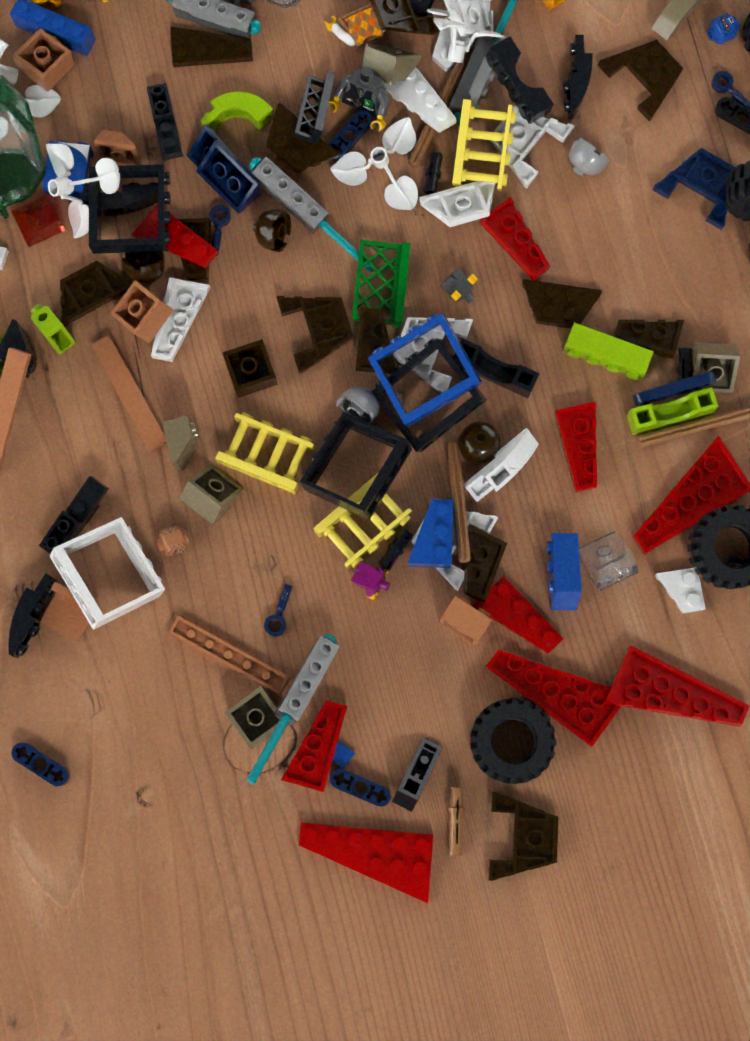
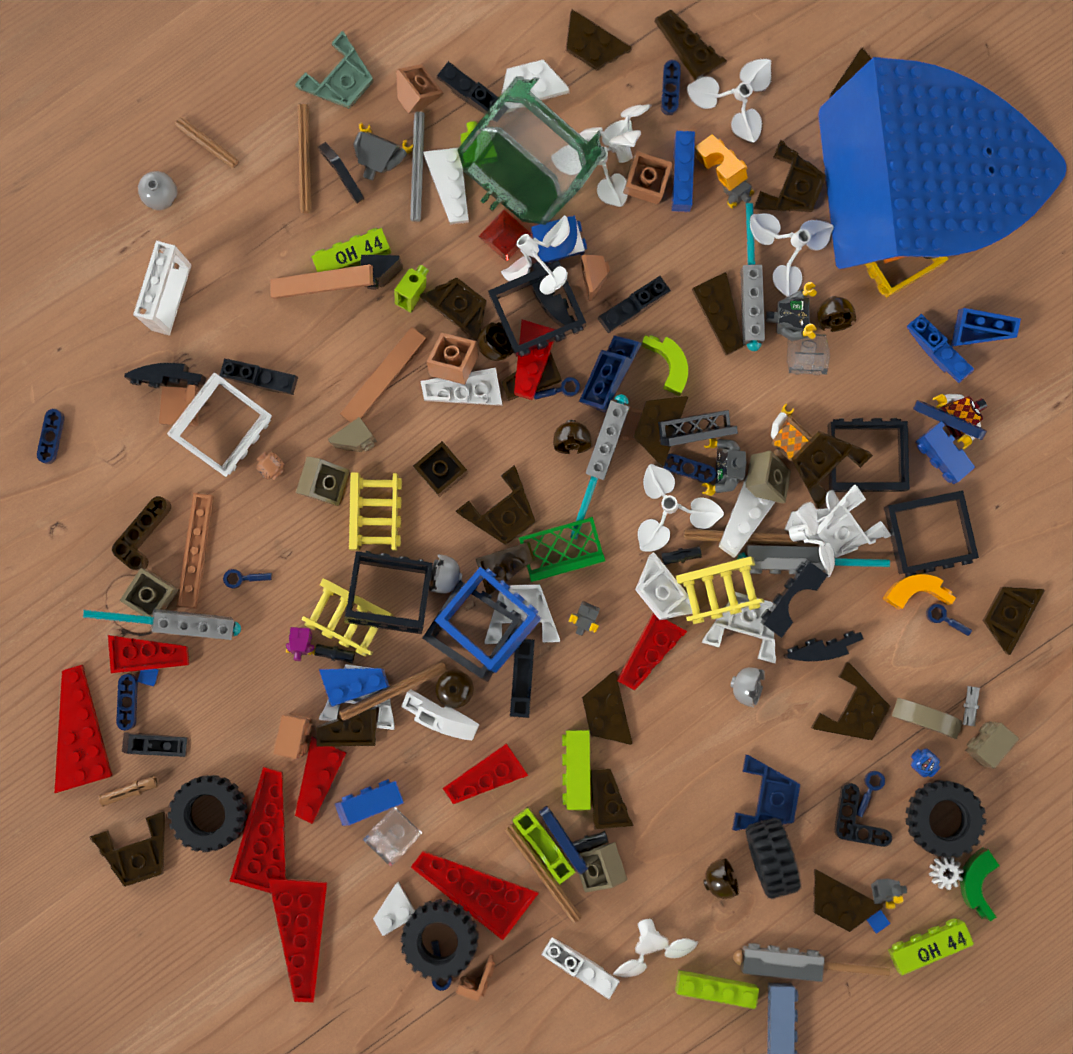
camera: 70 degrees right, 5 degrees up
(184, 699) = (144, 532): none -> dark brown beam

